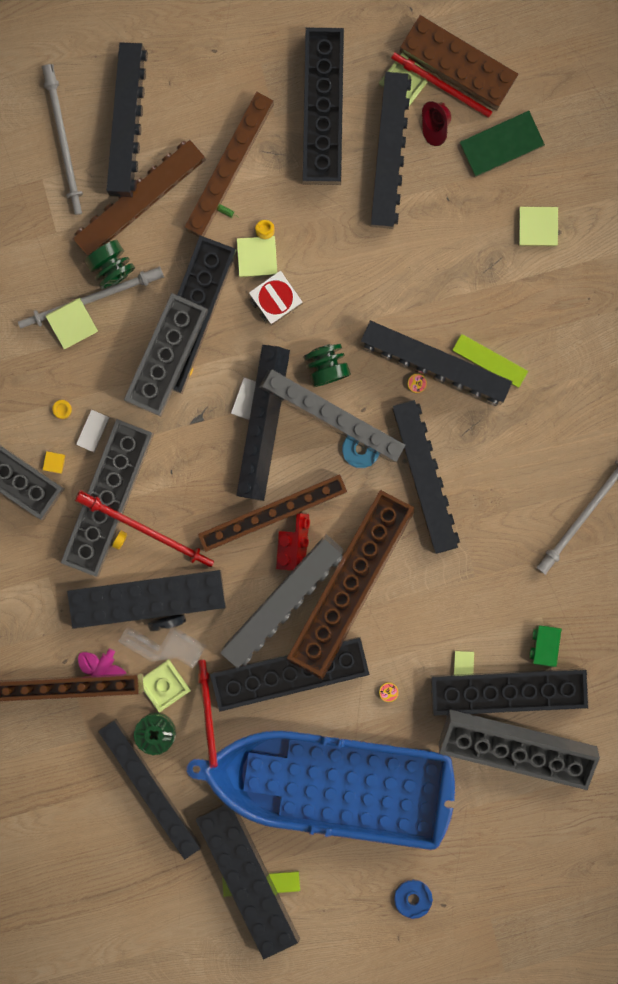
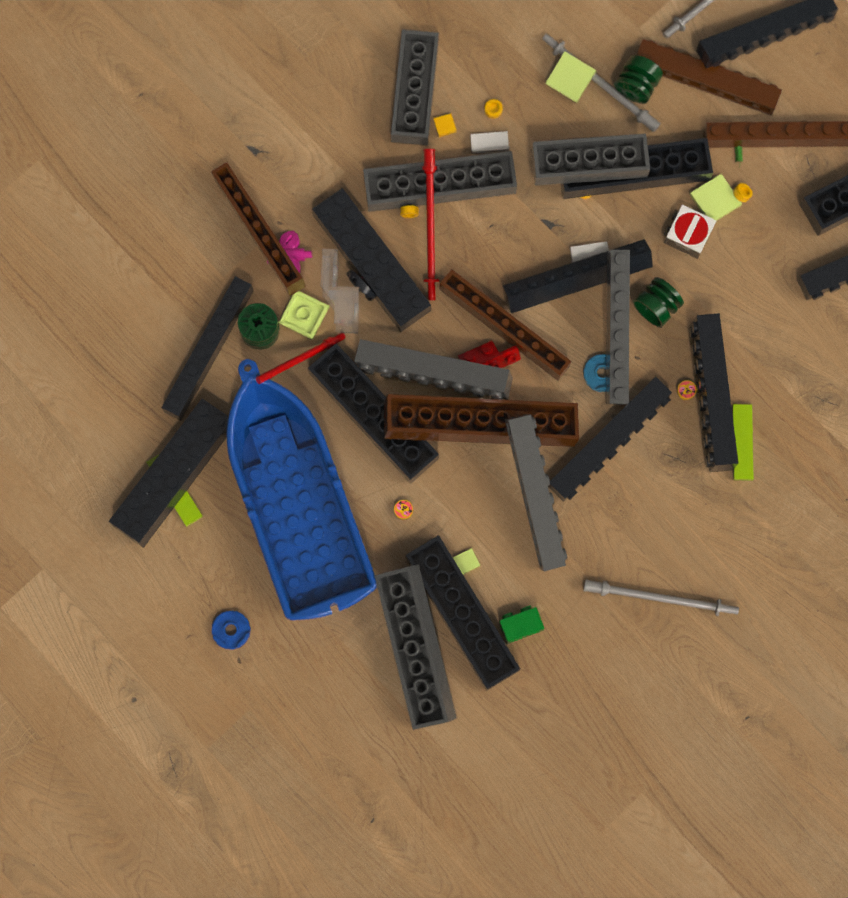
camera: 55 degrees right, 10 degrees down
(440, 572) = (535, 492): none -> dark grey brick

